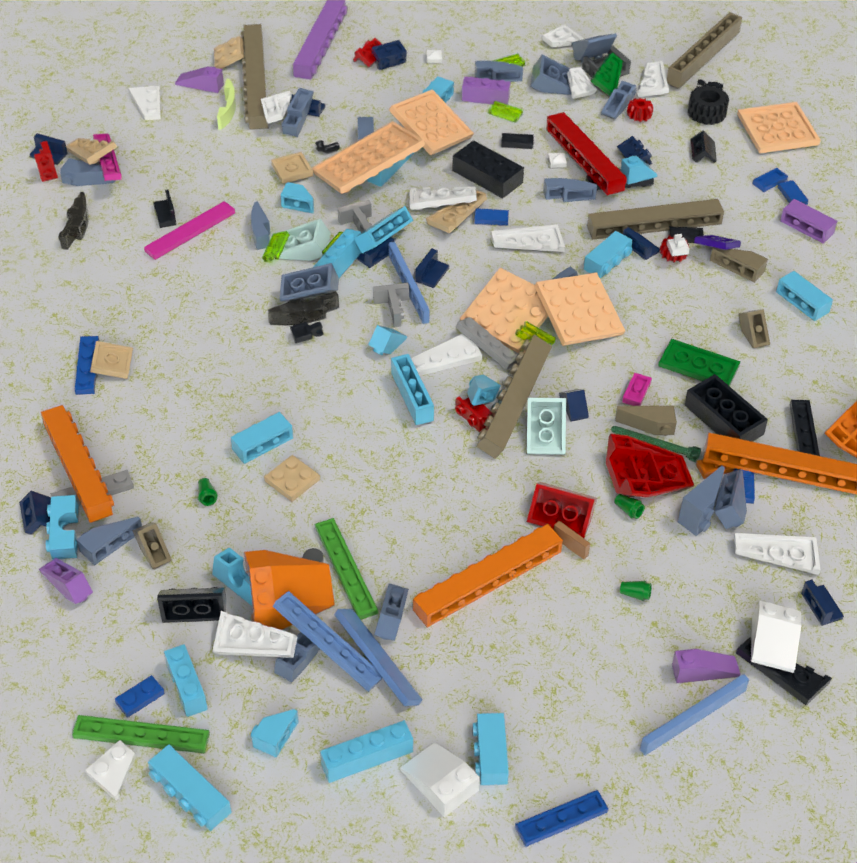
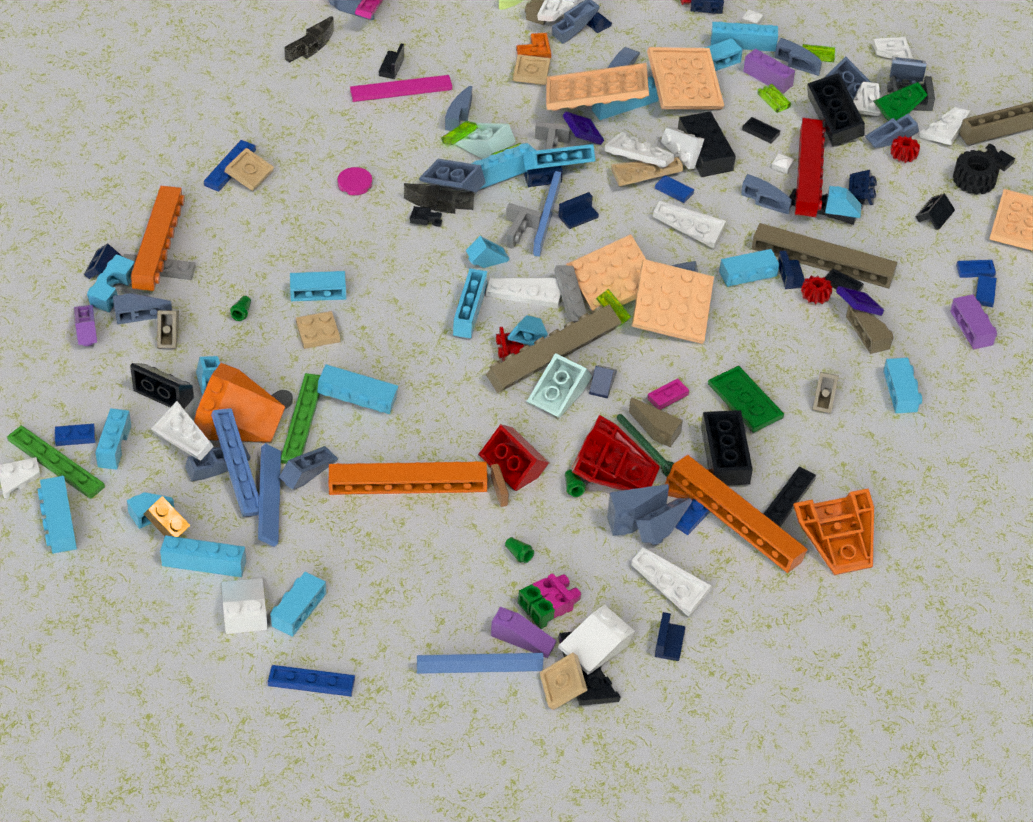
camera: 30 degrees right, 0 degrees up
(215, 328) = (355, 181): none -> dark pink tile
(279, 147) = (539, 46): none -> orange tile
(297, 198) = (511, 97): medium azure slope -> none
(307, 733) = (166, 518): none -> brick
(326, 148) = (579, 65): black arm -> none
(377, 515) = (357, 389): none -> medium azure brick
(378, 197) = (583, 128): none -> dark purple tile
(451, 68) = (746, 35): none -> medium azure brick
(479, 176) = (683, 145): none -> white wing
(565, 95) = (836, 109): none -> black brick
(678, 245) = (814, 287): white tile -> none
(702, 614) = (548, 599): none -> hips
(780, 690) = (563, 681): none -> tan plate

